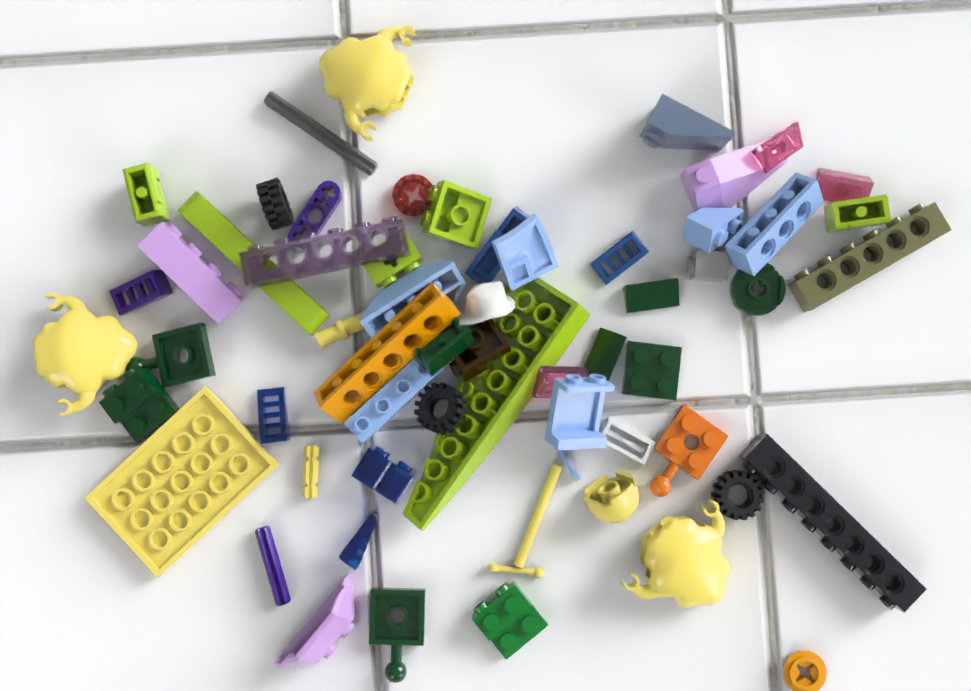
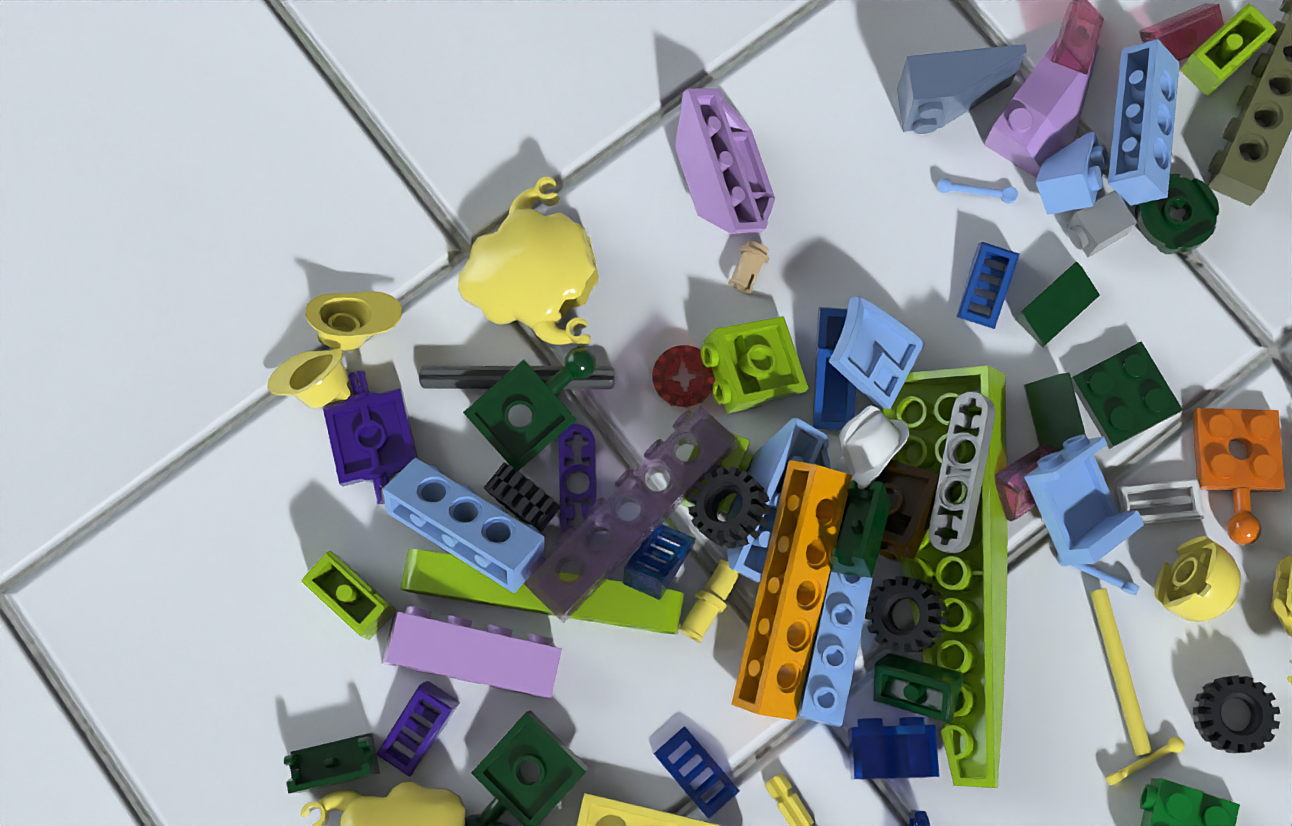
camera: 25 degrees left, 10 degrees down
(81, 280) = (332, 763): none -> dark green hinge
(204, 56) = (312, 378): none -> light yellow piece
(217, 113) = (370, 436): none -> dark purple plate
(223, 159) = (439, 511): none -> light blue brick
(248, 36) = (351, 318): none -> light yellow piece
(315, 301) = (648, 580): none -> clear blue slope
(318, 142) = (525, 387): none -> dark green plate
(373, 274) = (714, 492): none -> black tyre
(420, 450) = (917, 686): none -> dark green slope
(493, 156) = (749, 266): none -> tan pin
(519, 86) = (722, 163): none -> lavender wedge
(525, 356) = (954, 471): none -> light grey beam
(585, 595) = (1260, 707): none -> black tyre
(670, 213) = (1007, 195): none -> light blue hinge

